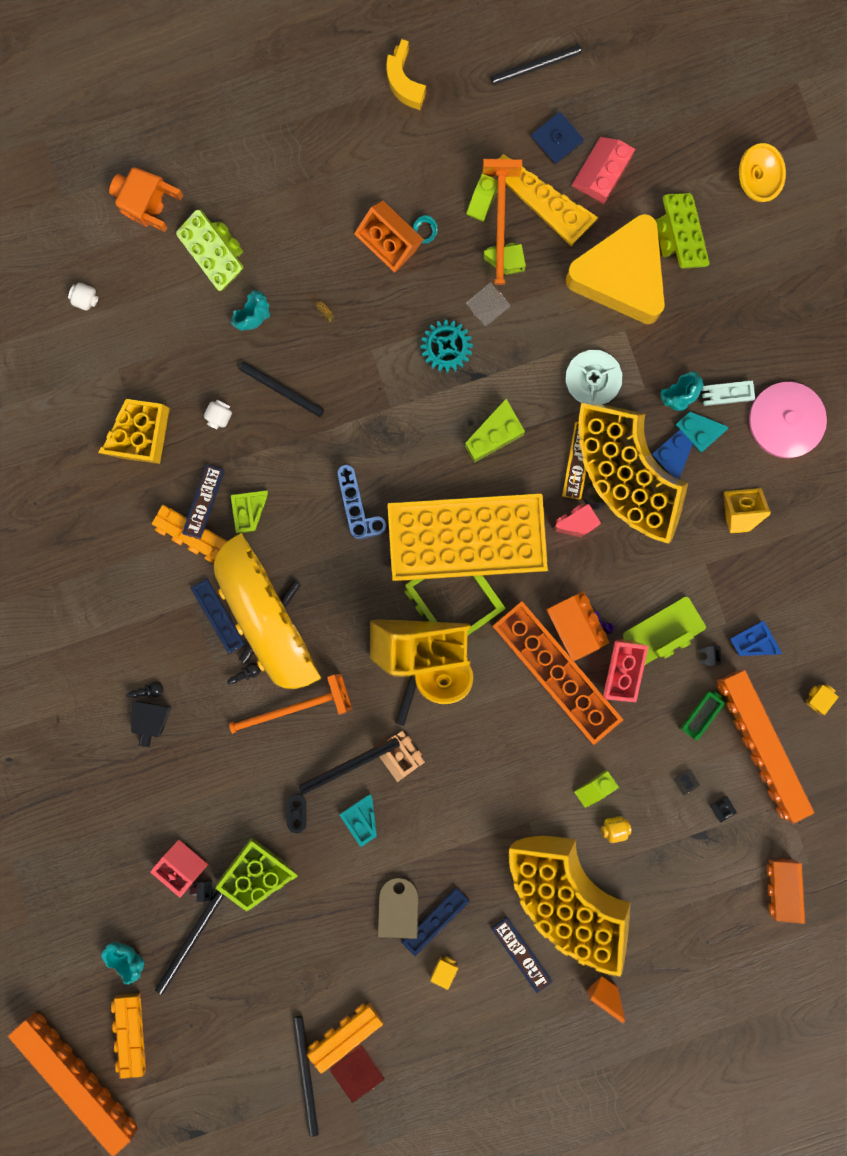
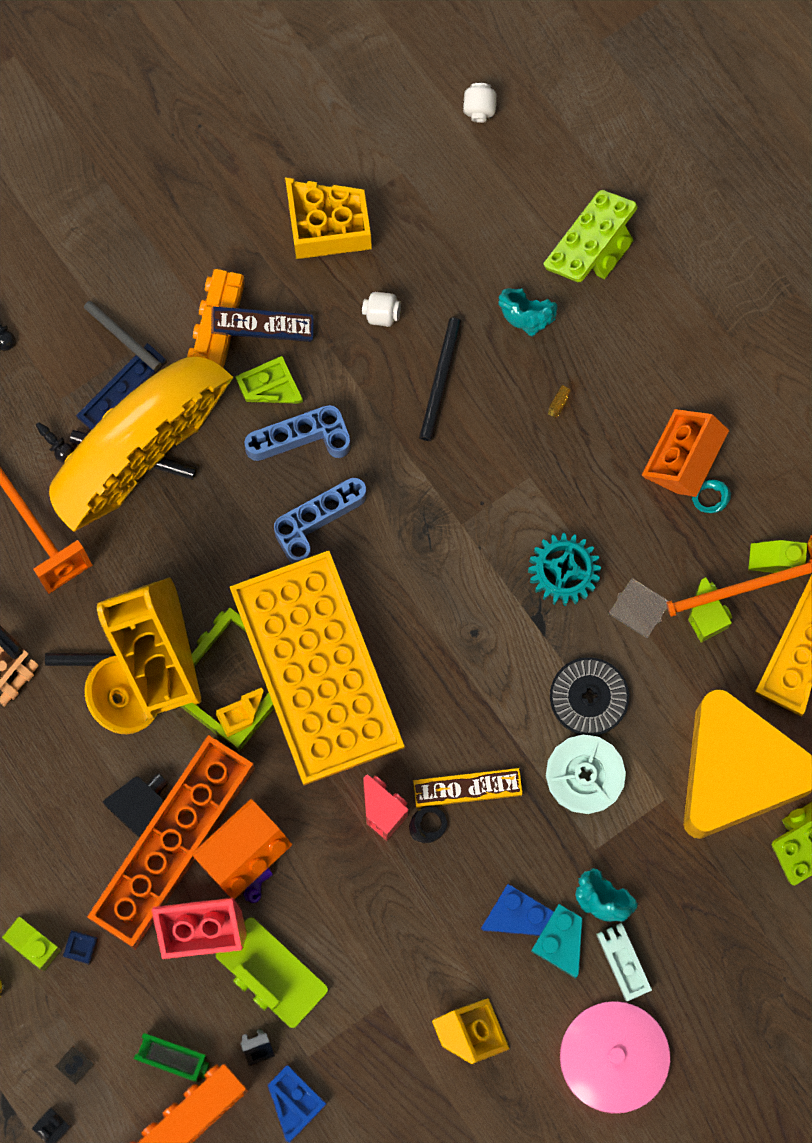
camera: 65 degrees right, 10 degrees down
(141, 196) = (630, 132): orange piece -> none
(179, 604) = (123, 336): none -> dark grey bar
(294, 502) = (296, 438): none -> medium blue beam
(483, 599) = (240, 714): none -> yellow slope
(495, 432) = (469, 665): lime wedge -> none
(522, 688) = (137, 802): none -> black torso
(527, 366) = (604, 682): none -> piece
(607, 756) = (80, 947): none -> dark blue tile
(627, 473) = (470, 854): yellow brick -> none

